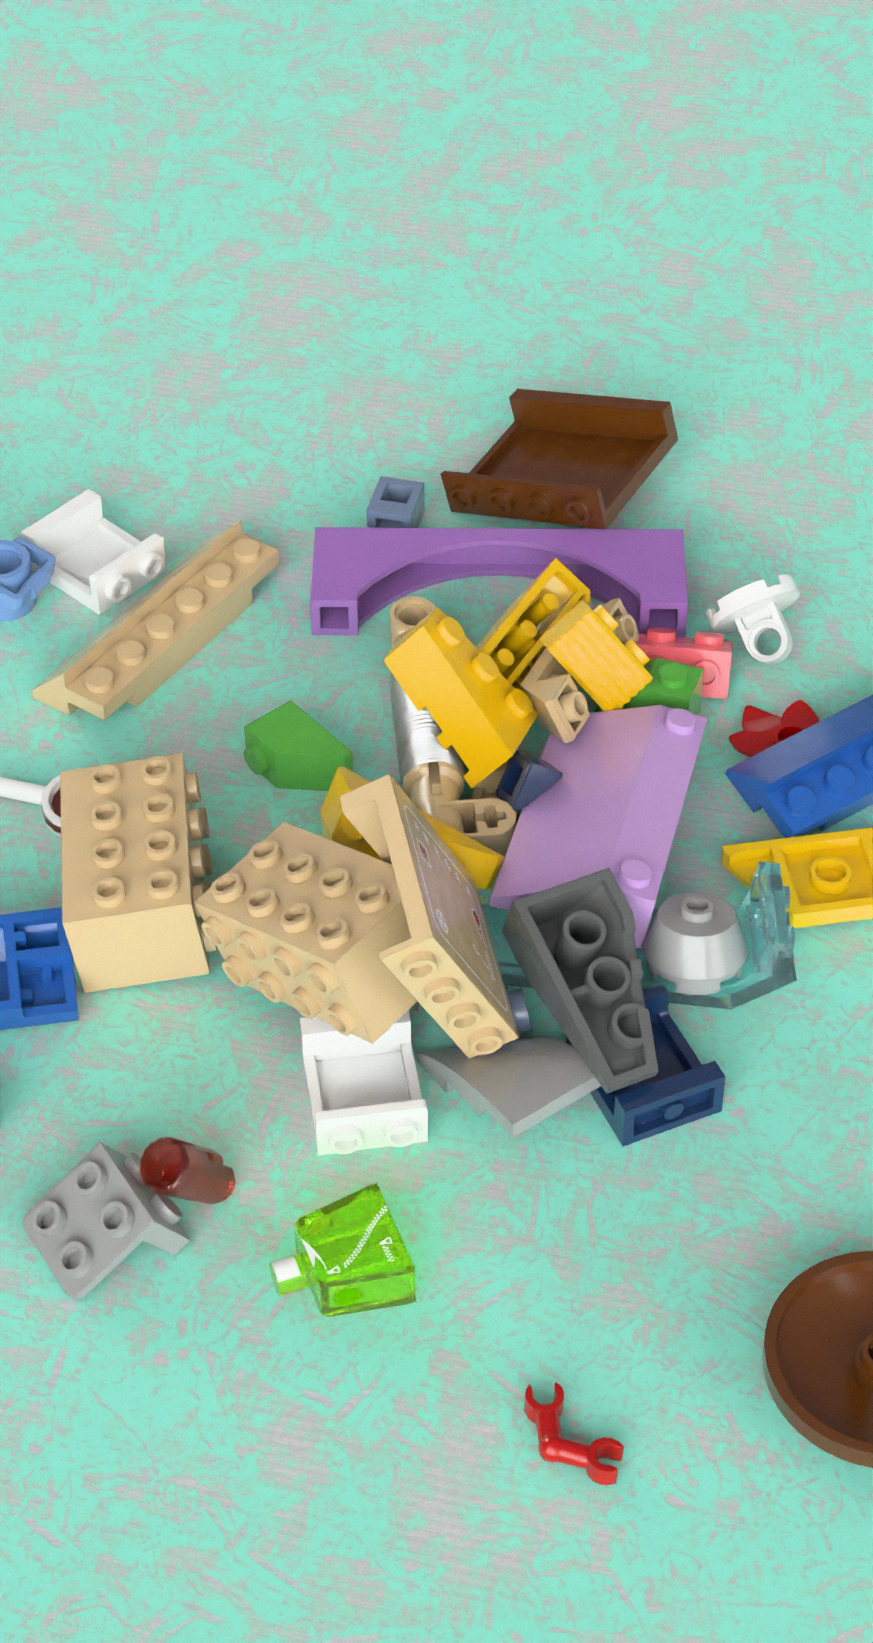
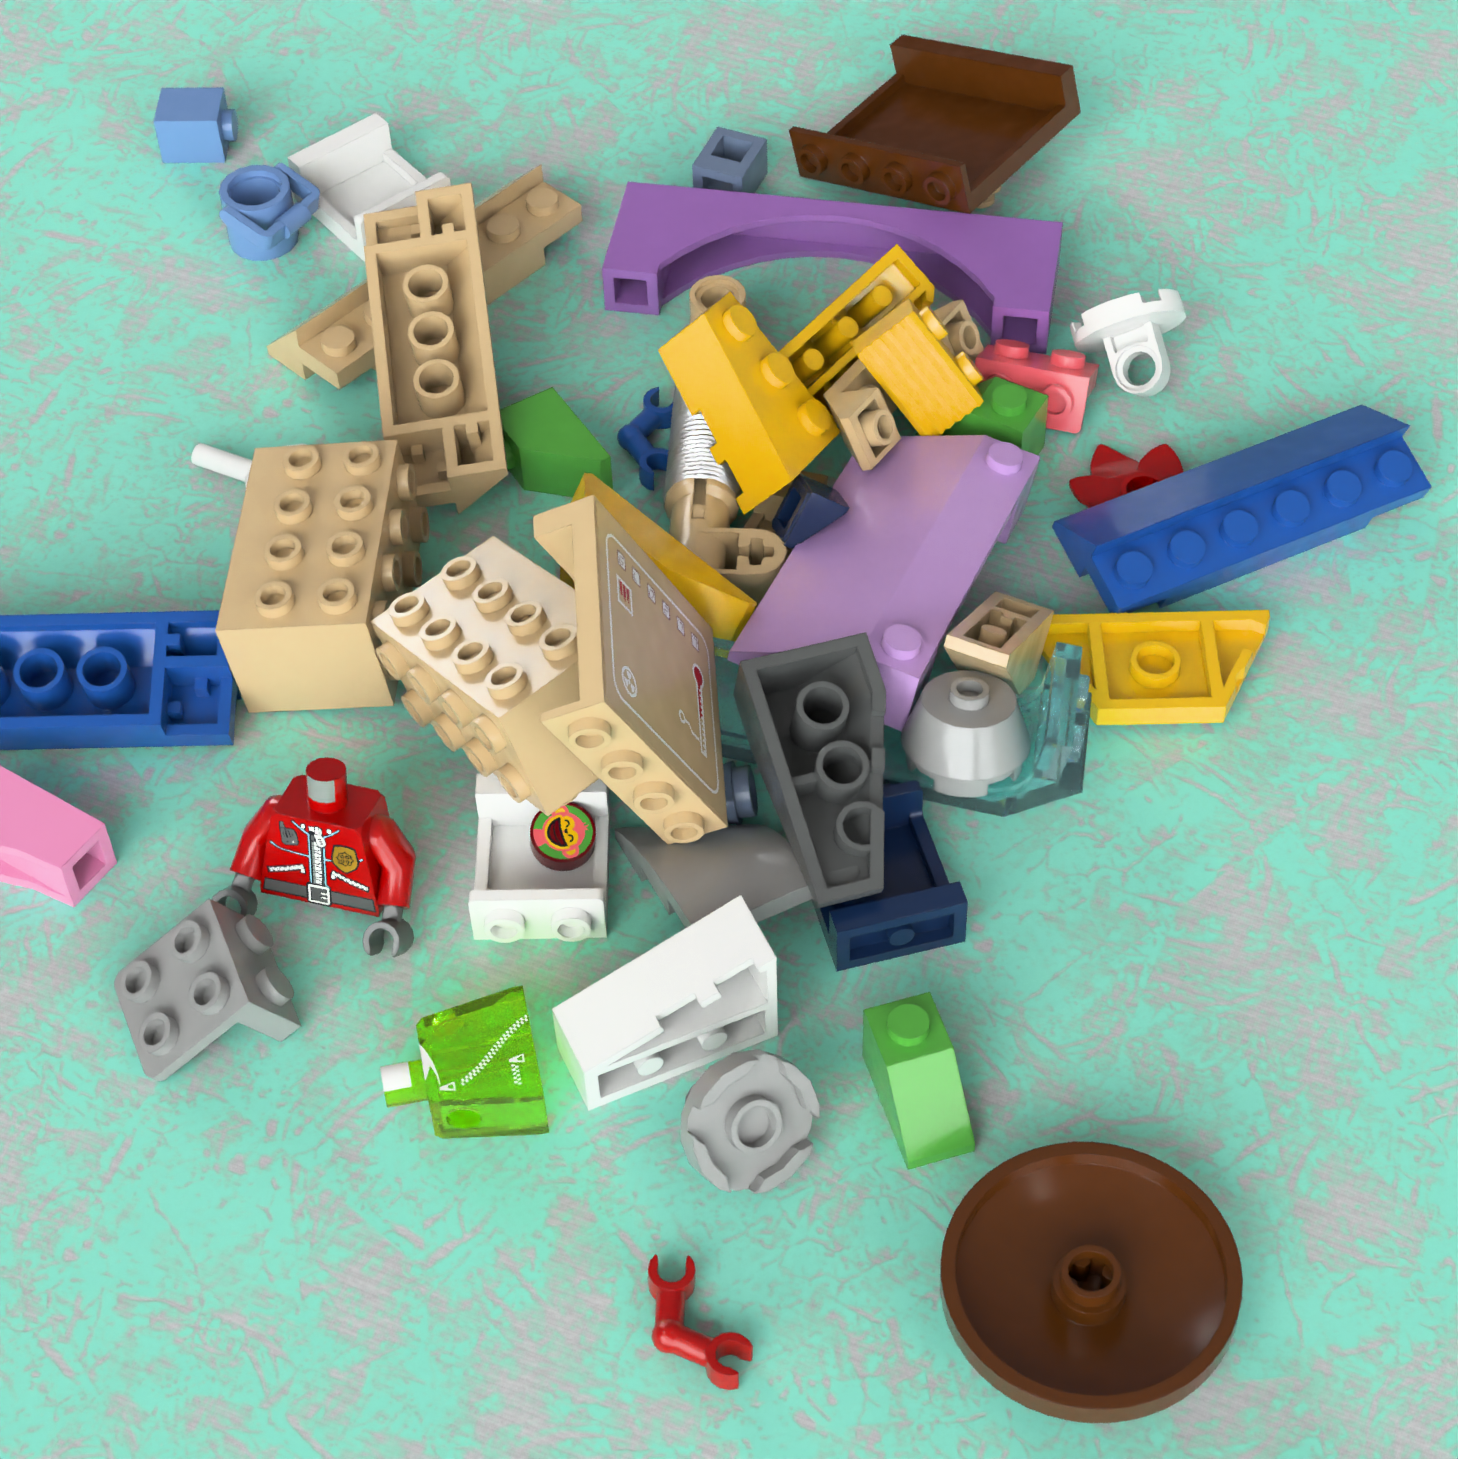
camera: 10 degrees right, 5 degrees up
(186, 1171) = (305, 944): clear red arm -> none
(189, 672) = (435, 345): none -> tan slope
(189, 1092) = (329, 849): none -> red torso
(362, 736) = (634, 437): none -> blue arm
(378, 1064) = (563, 838): none -> tile
(502, 1187) = (672, 1008): none -> white wedge
(585, 1268) = (749, 1121): none -> light grey tile
(709, 864) = (1001, 639): none -> tan slope
(711, 1221) = (917, 1079): none -> bright green slope

